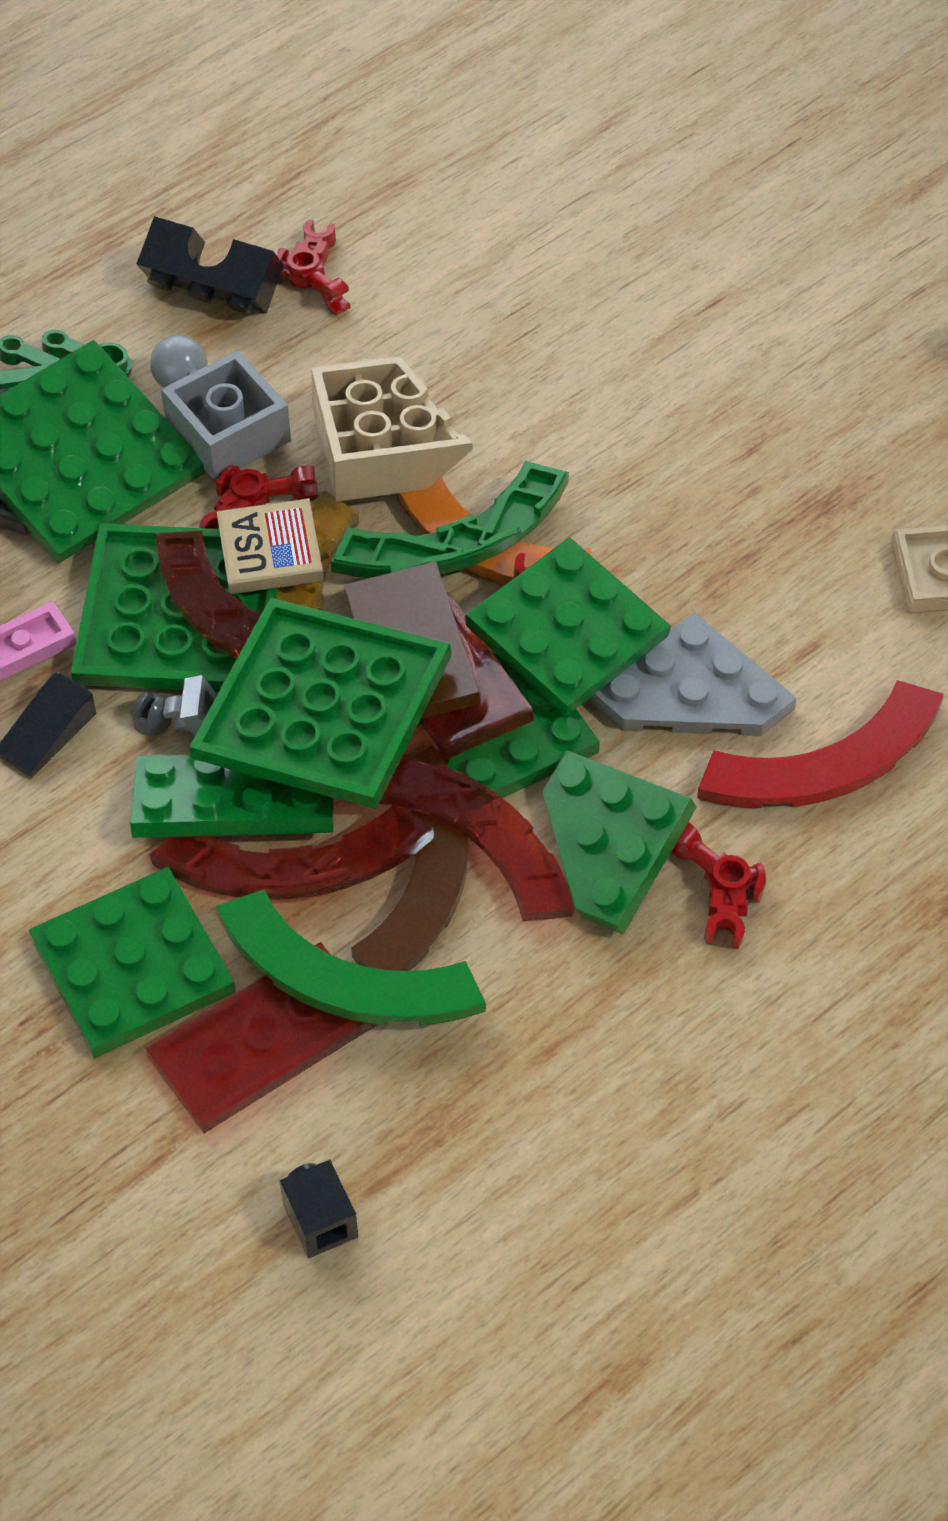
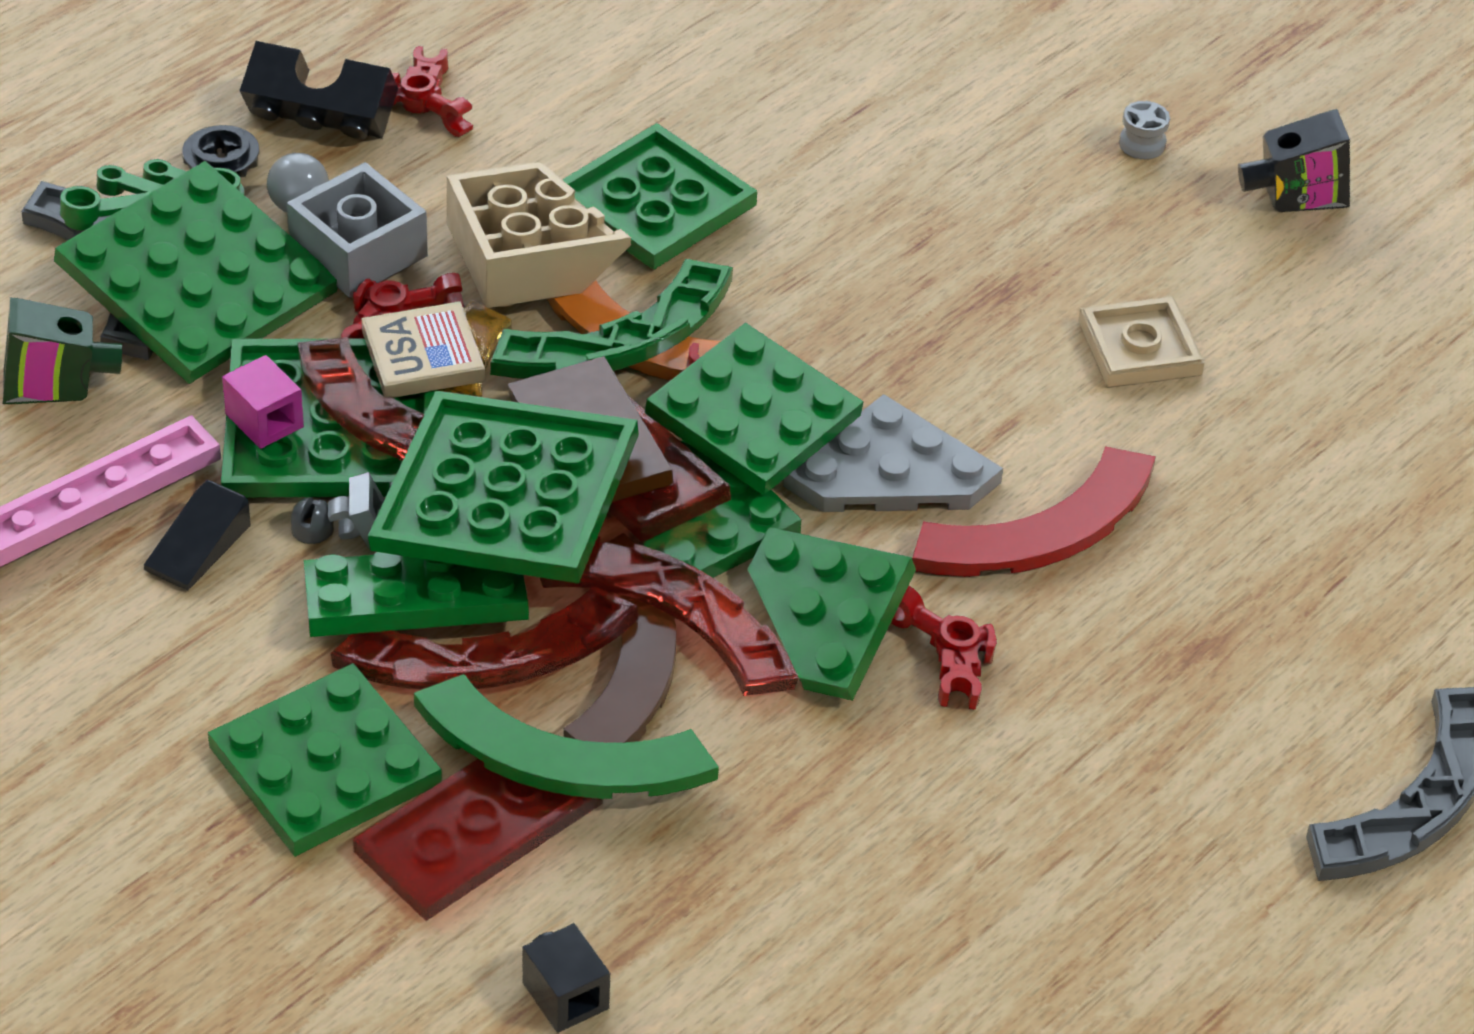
camera: 10 degrees left, 10 degrees down
(115, 595) = (263, 401): none -> dark pink brick
(131, 313) = (238, 145): none -> black gear
(509, 389) = (661, 194): none -> green plate

